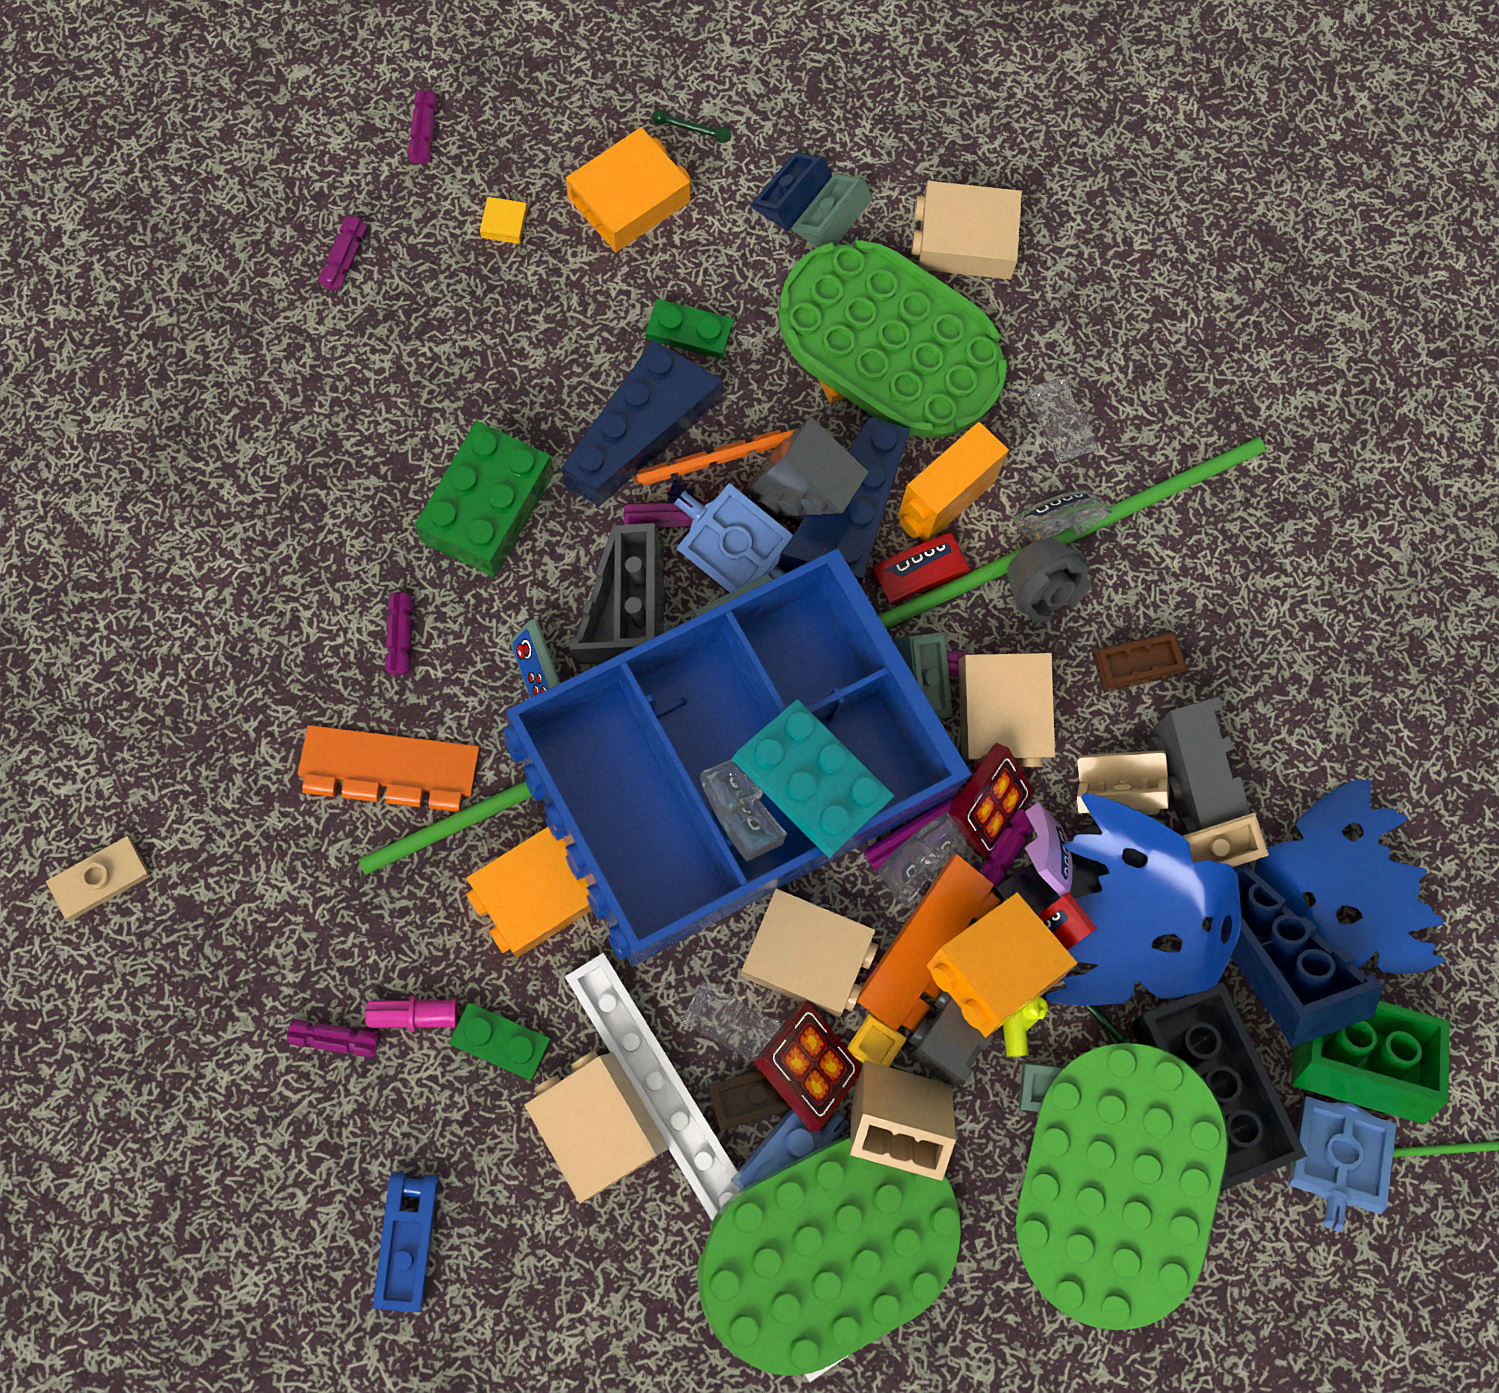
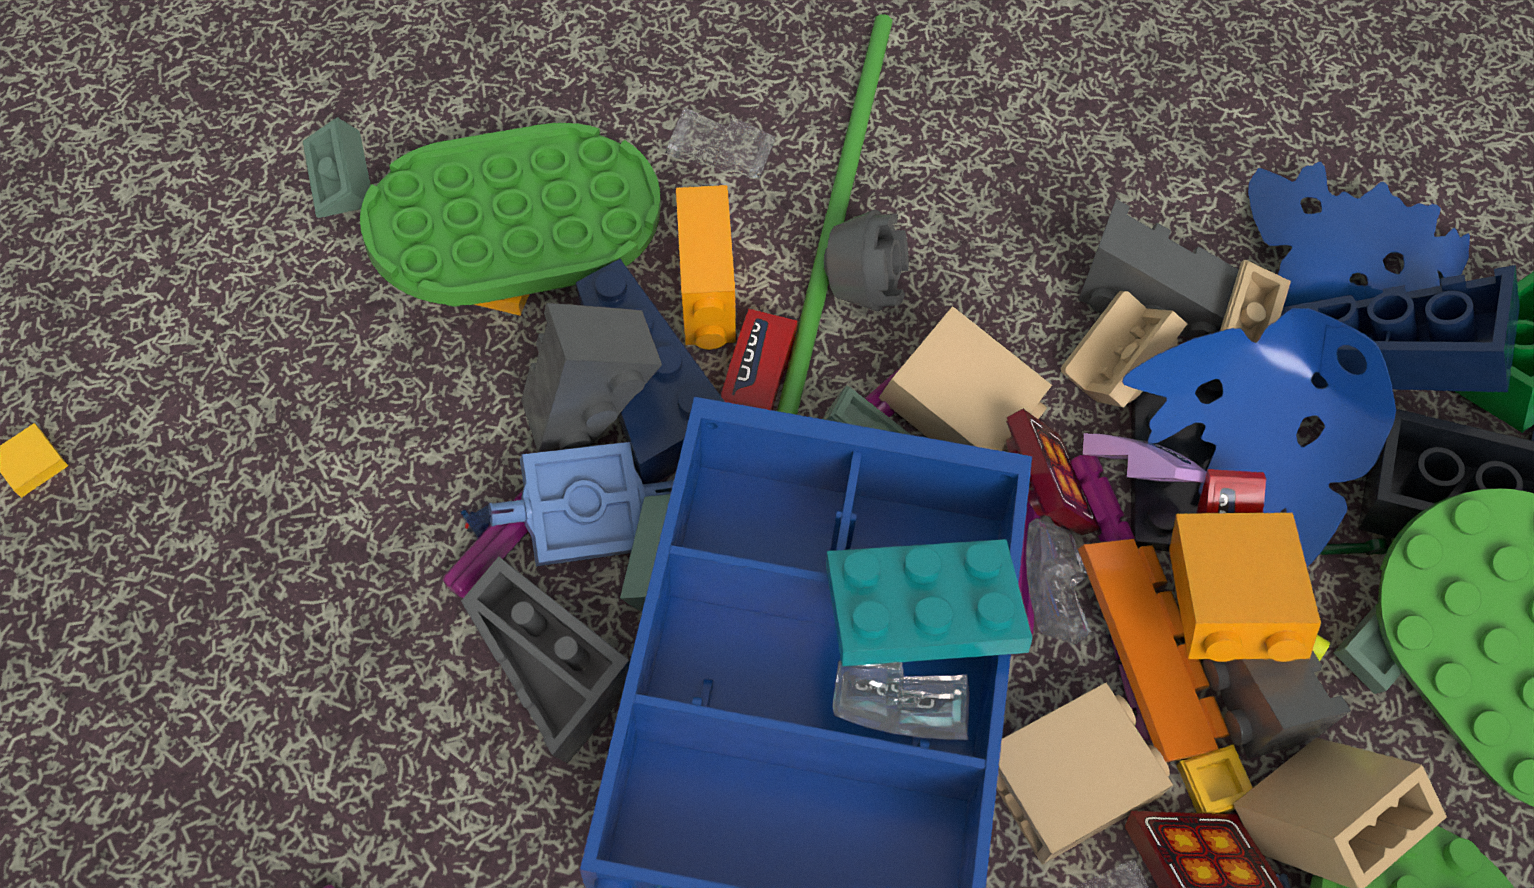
camera: 45 degrees left, 10 degrees down
(485, 498) = (301, 716): green brick -> none
(534, 659) = (534, 809): slope -> none
(629, 189) = (125, 319): light orange brick -> none
(642, 418) = (371, 488): dark blue wedge -> none
(689, 328) = (321, 378): green plate -> none
(702, 460) = (476, 453): orange windscreen -> none
(722, 134) = (161, 201): dark green hinge -> none
(792, 189) = (280, 185): dark blue slope -> none
(967, 229) = (471, 76): tan brick -> none
(1073, 510) = (813, 208): clear slope -> none
(1139, 662) = (1007, 255): reddish brown plate -> none

